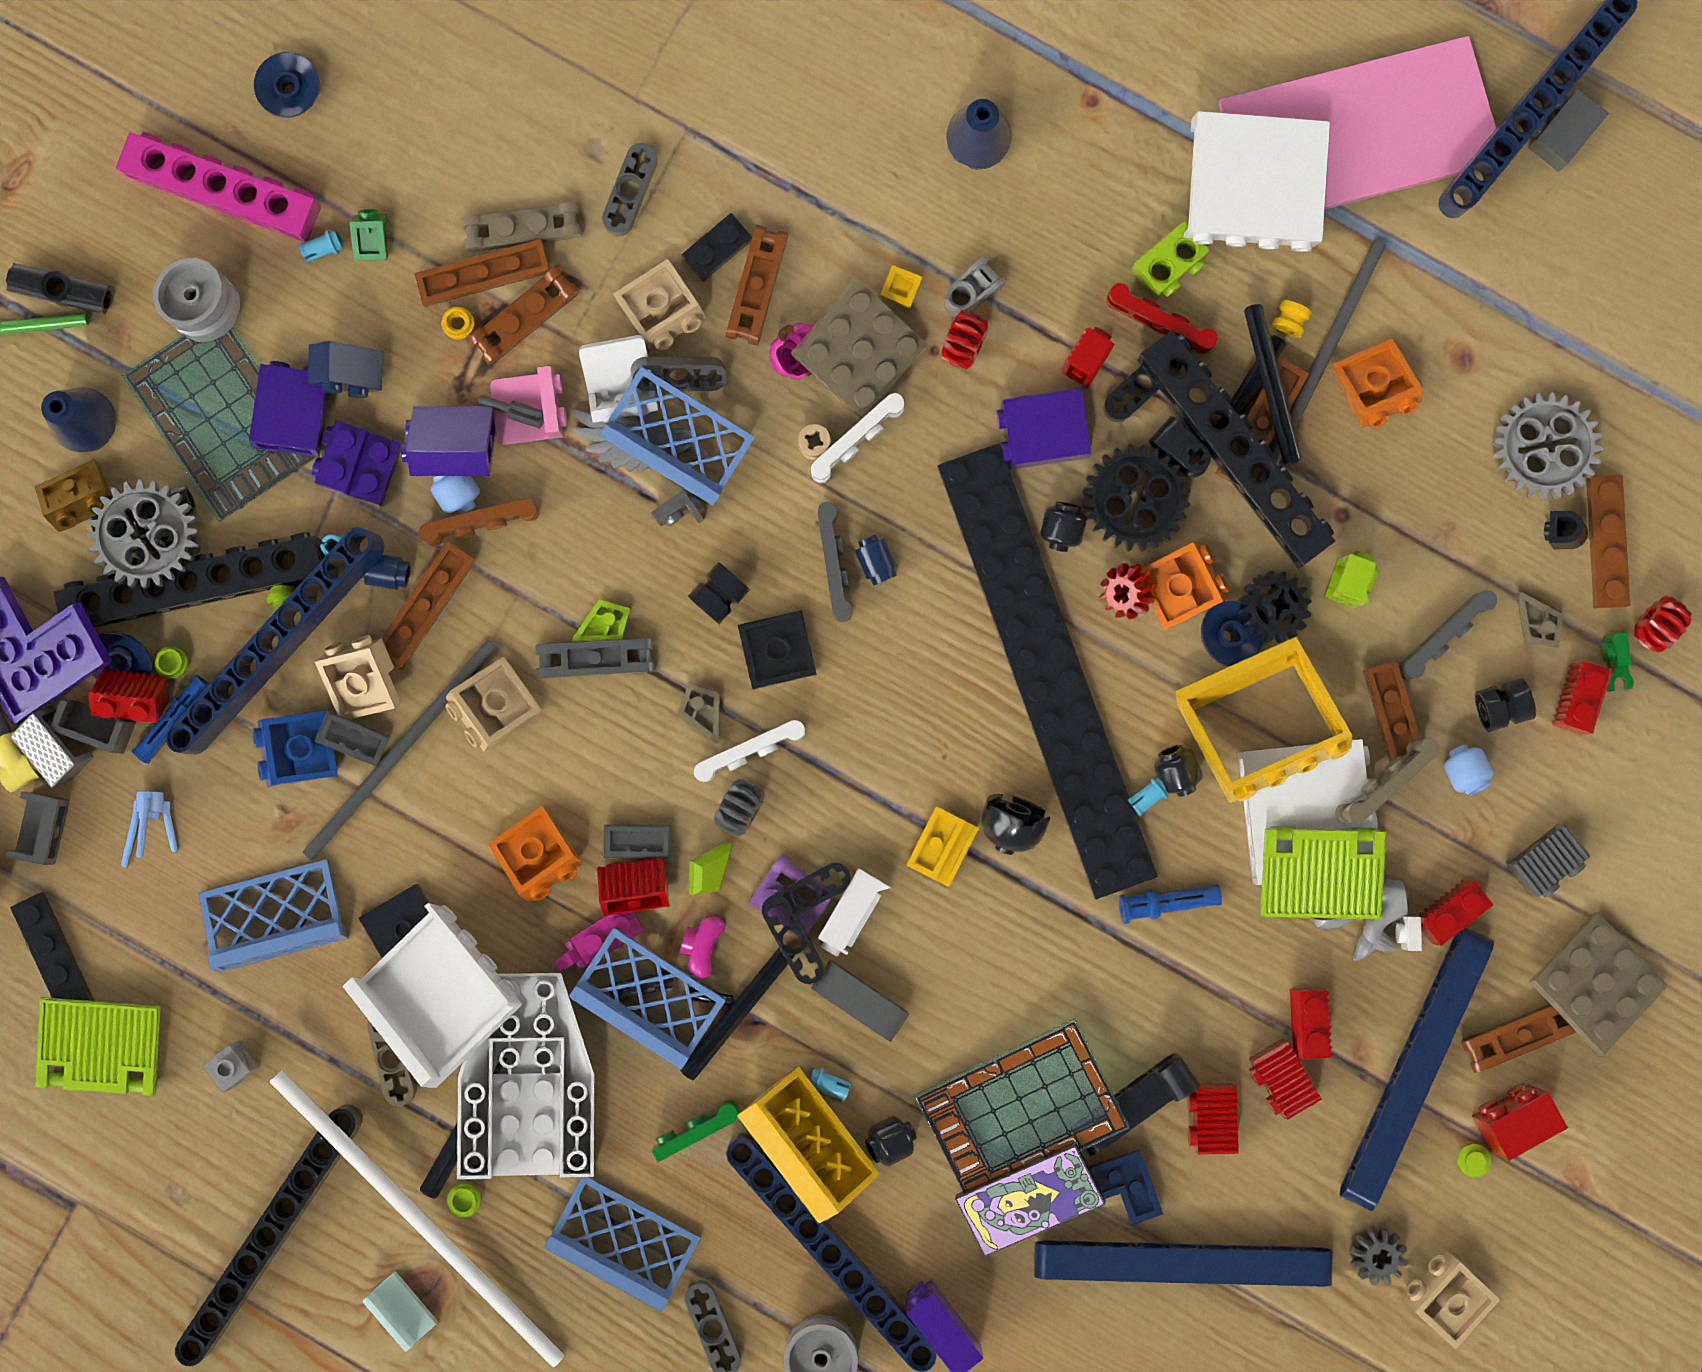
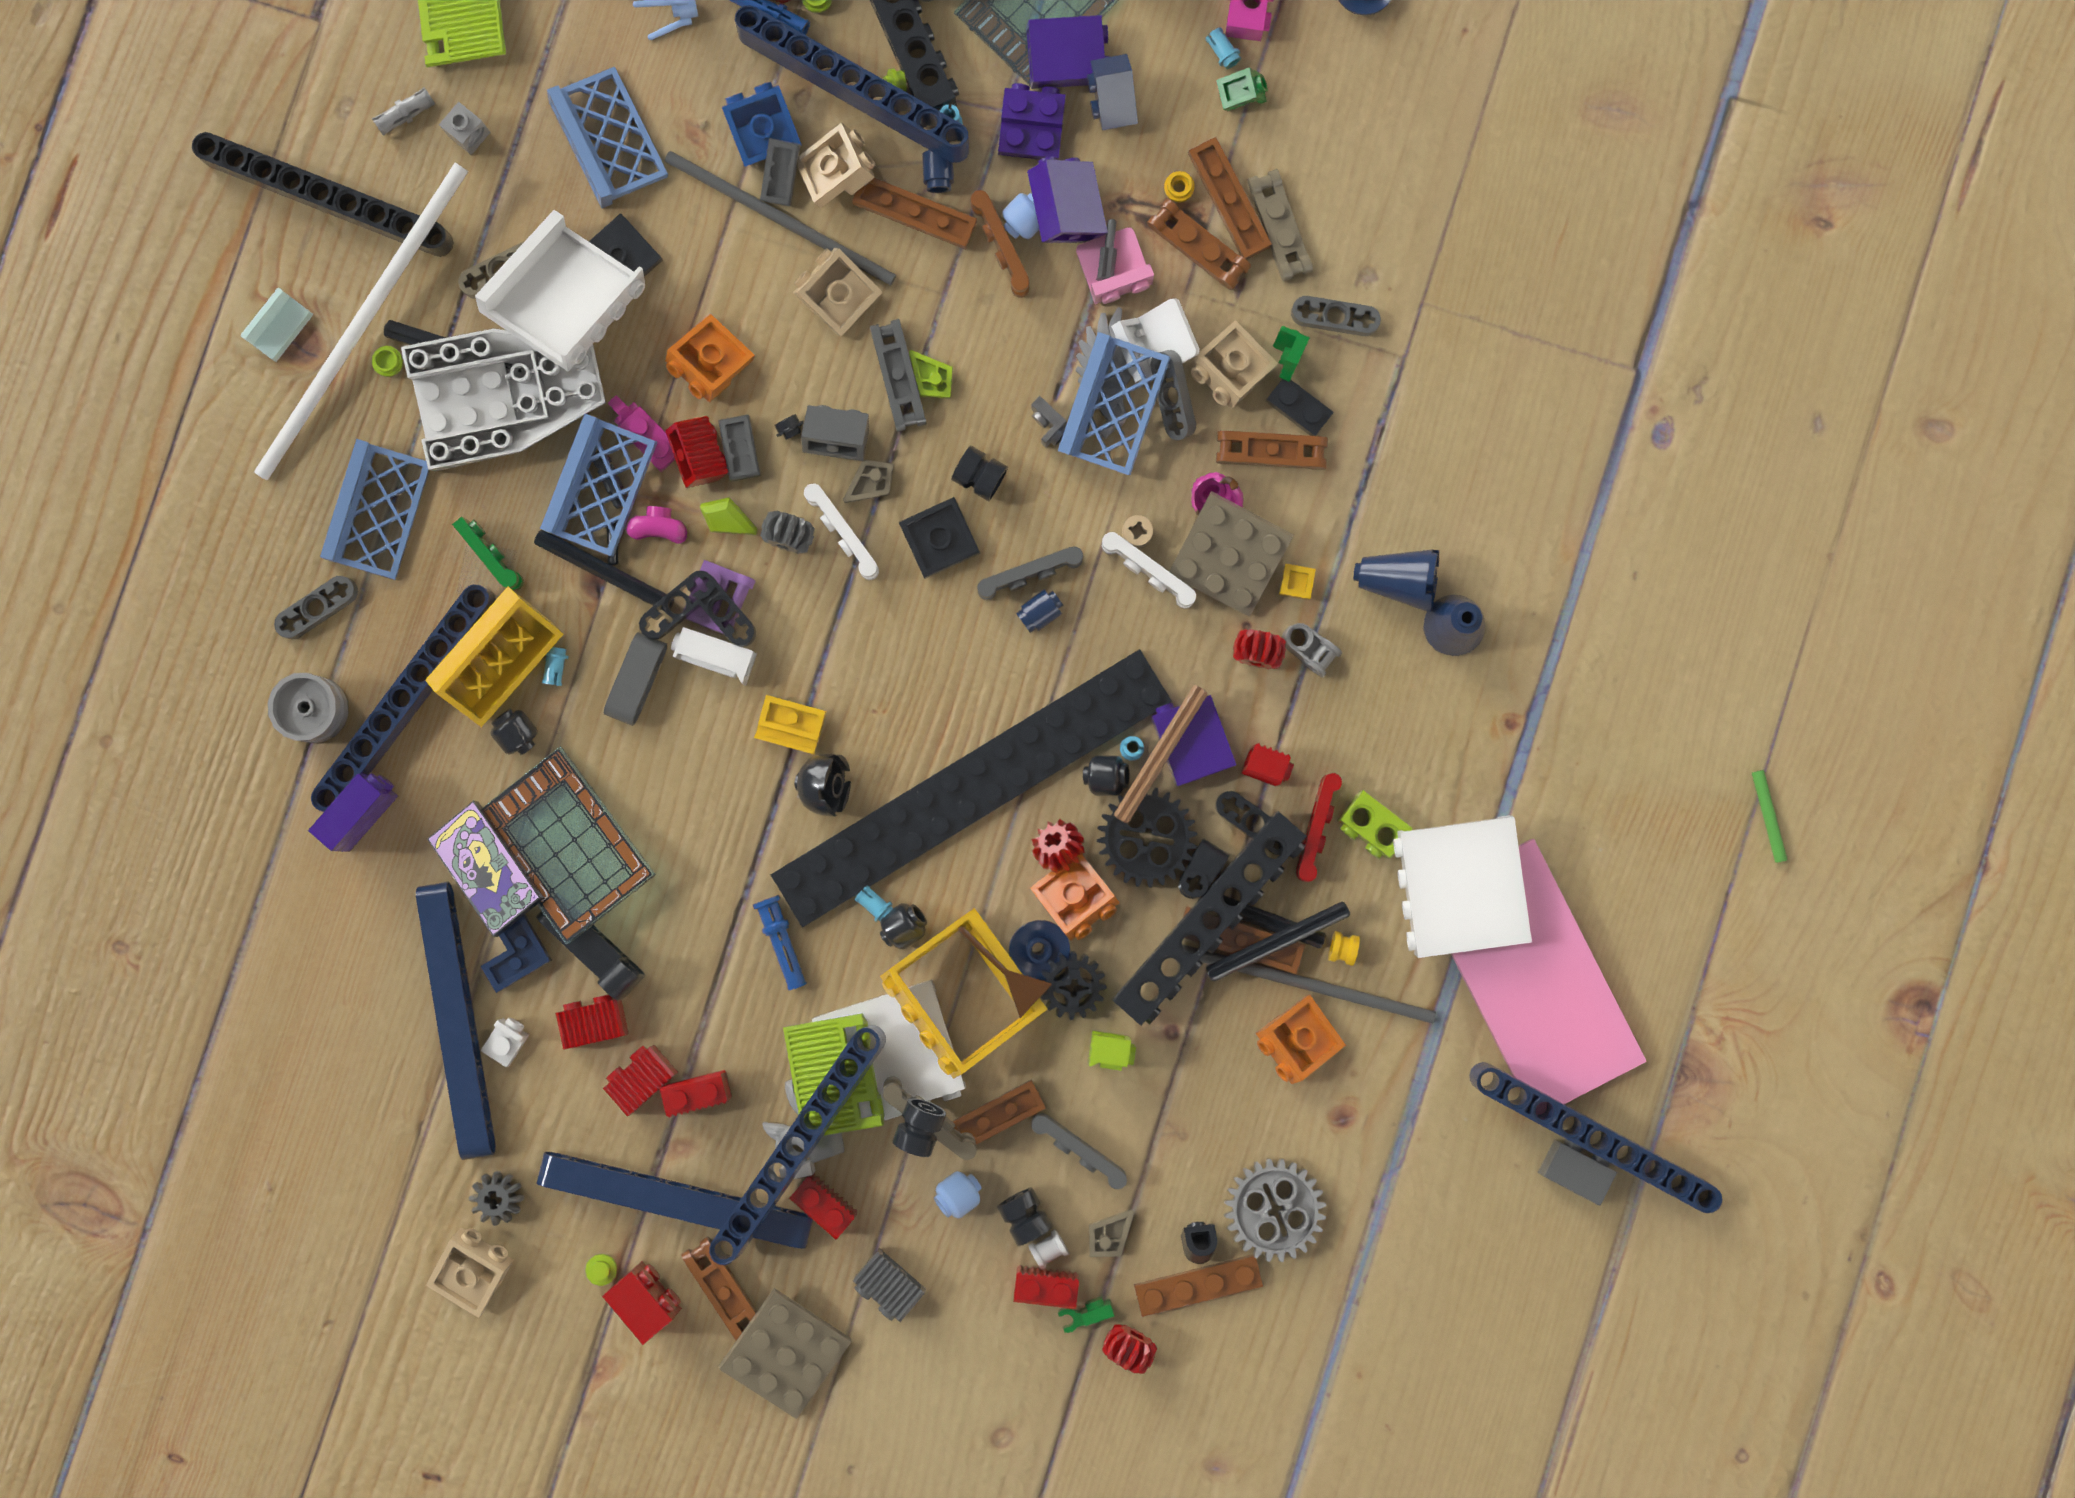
camera: 80 degrees right, 0 degrees up
(197, 1129) = (403, 111): none -> light grey pin
(626, 784) = (788, 427): none -> black plate
(643, 735) = (835, 432): none -> dark grey brick
(656, 238) = (1292, 345): none -> green bracket
(919, 178) = (1401, 577): none -> dark blue cone
(1032, 497) = (1128, 755): none -> medium azure pin
(1055, 463) = (1160, 754): none -> medium nougat axle
(1215, 1215) = (505, 1041): none -> white bracket
(1270, 657) = (1023, 988): none -> reddish brown piece
(1396, 787) = (917, 1132): none -> black wheel
(1403, 932) = (786, 1154): none -> dark blue beam
(1543, 687) = (1048, 1249): none -> white bush

